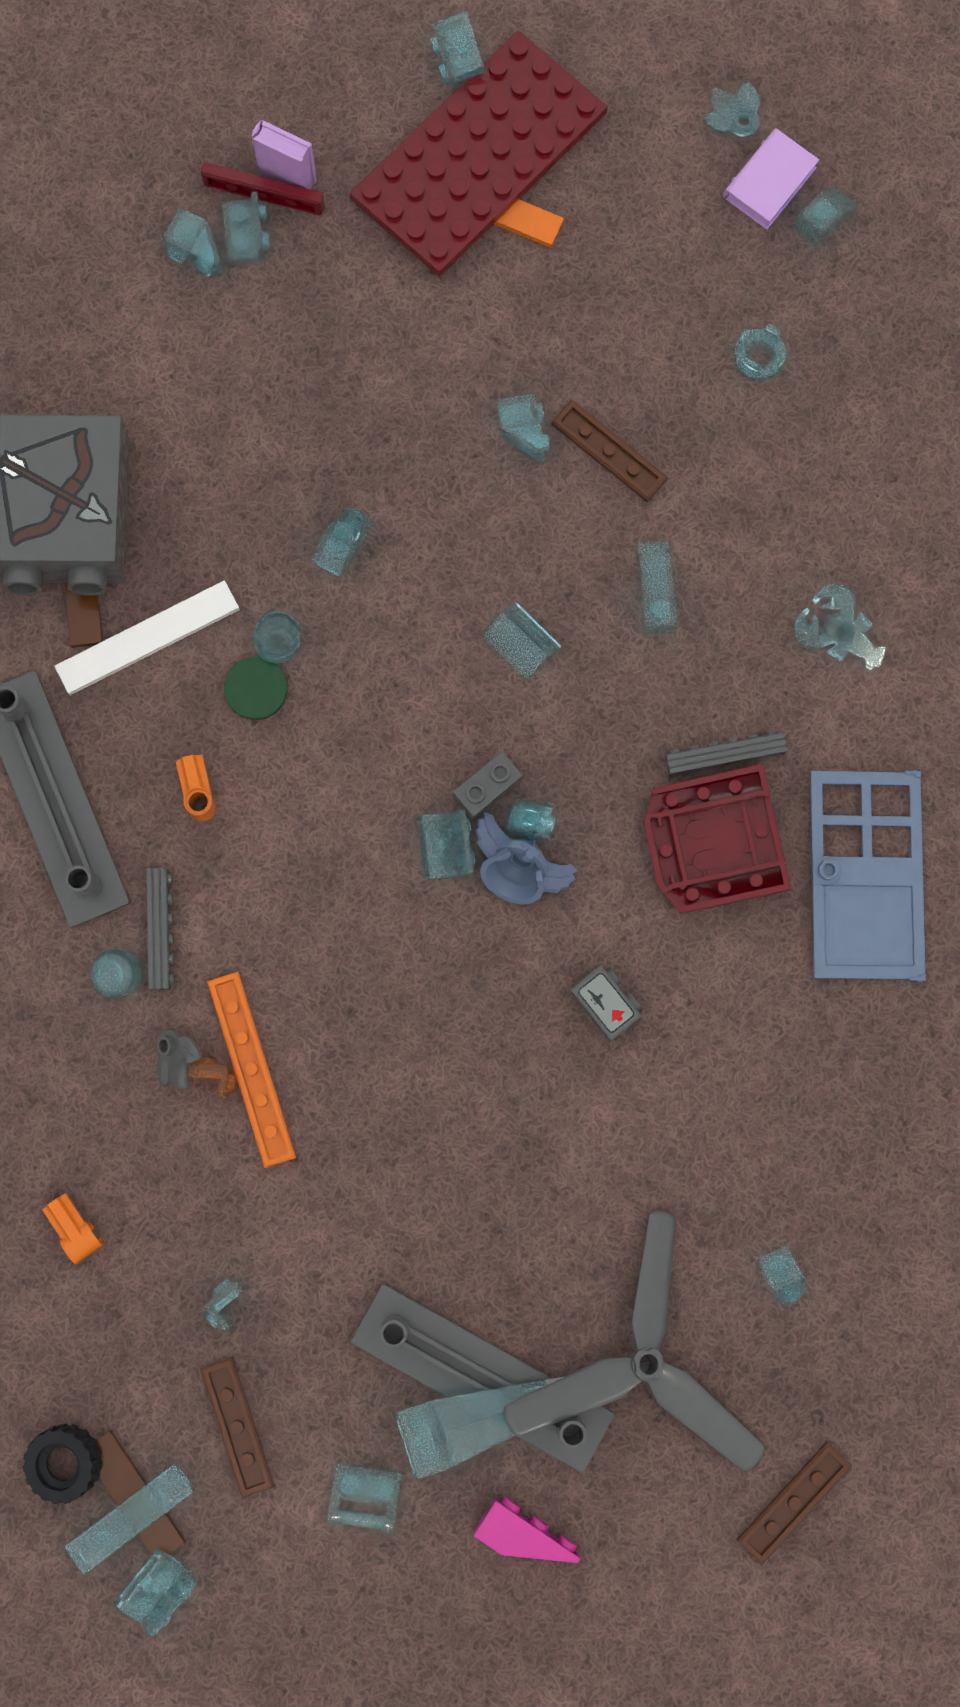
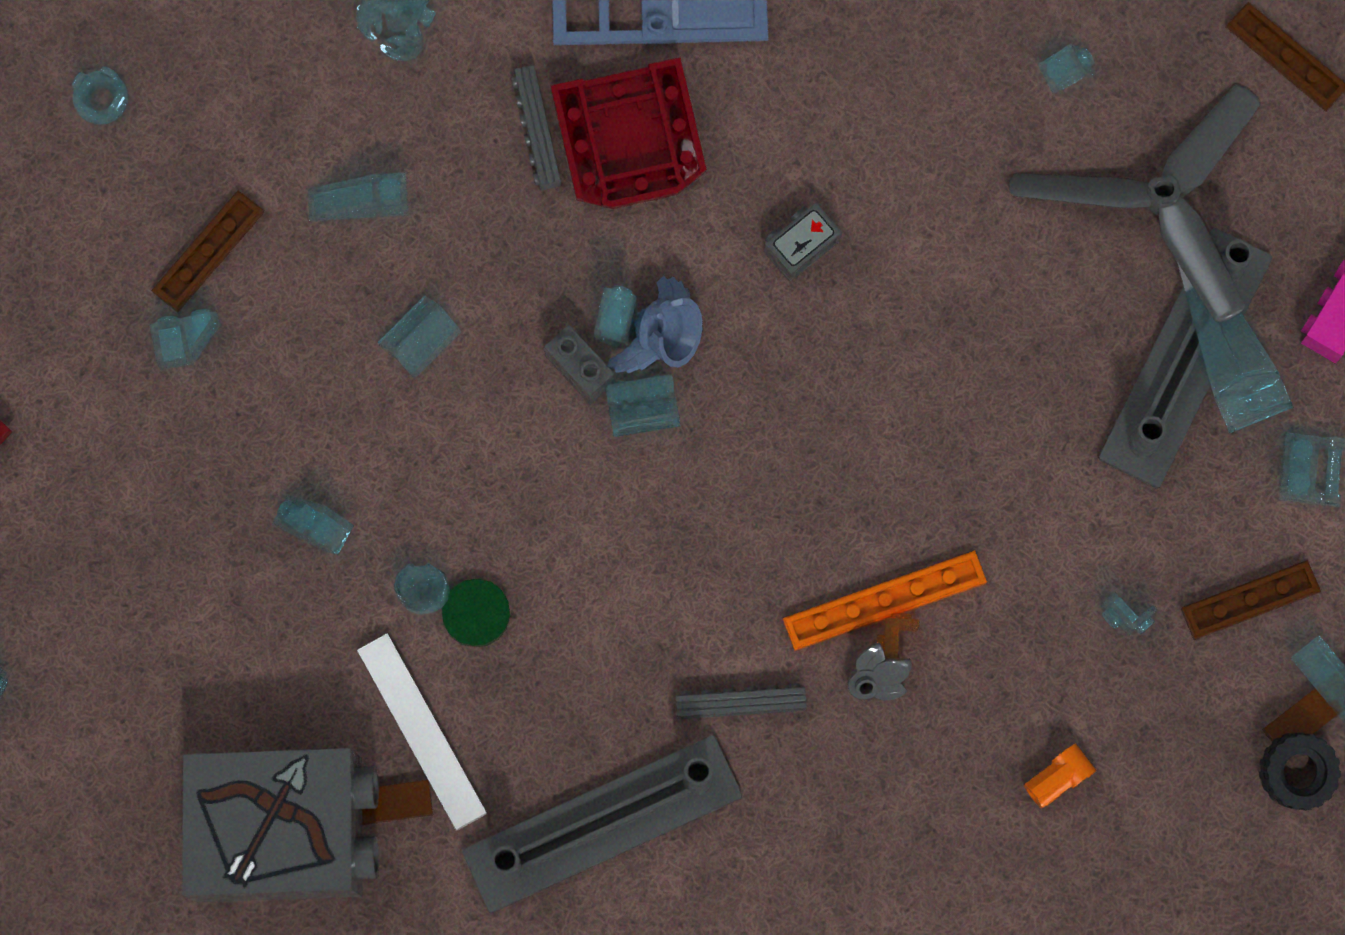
camera: 90 degrees left, 5 degrees down
(116, 973) = (790, 746): clear light blue hair -> none
(195, 785) = (583, 670): orange piece -> none

